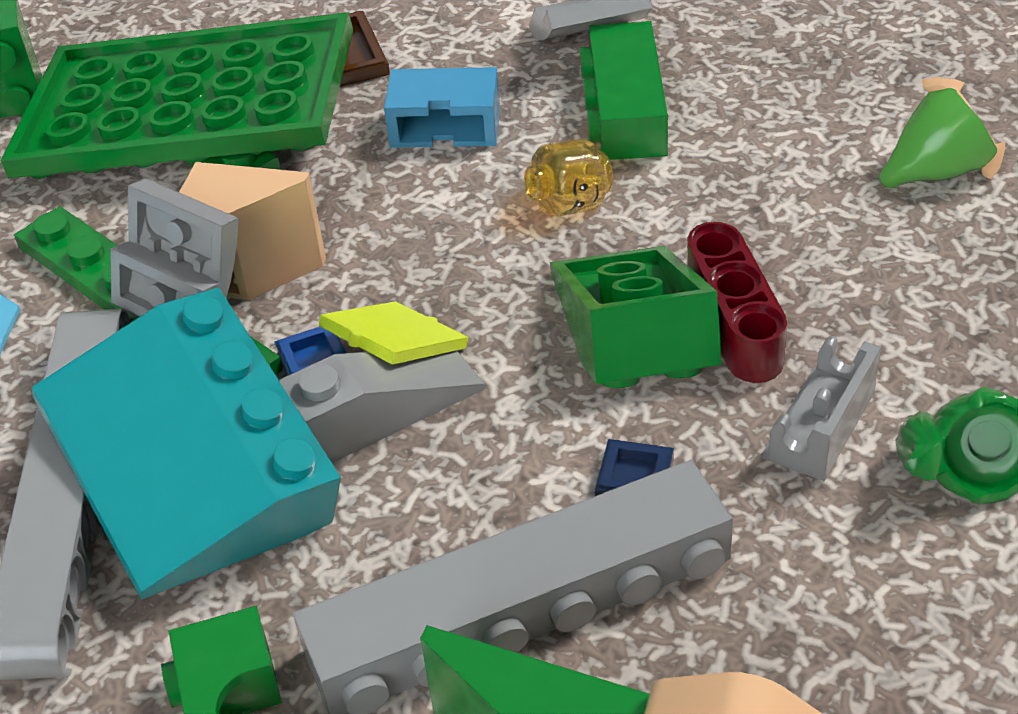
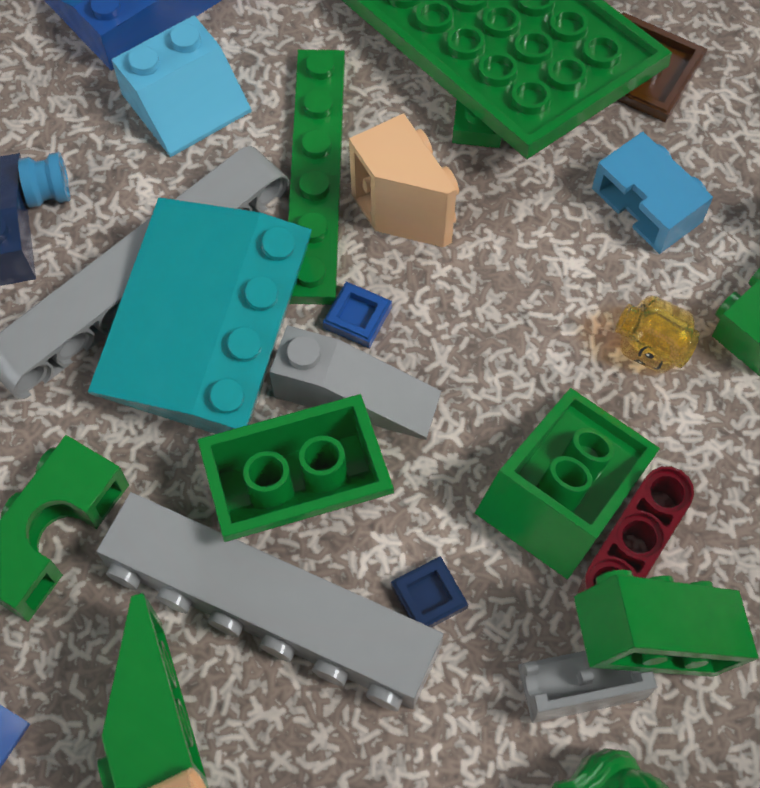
camera: 45 degrees right, 20 degrees up
(171, 249) = (325, 173): light grey slope -> none
(393, 332) = (409, 348): neon yellow piece -> none
(413, 470) = (294, 467): none -> green slope
(831, 302) = (663, 625): none -> green brick

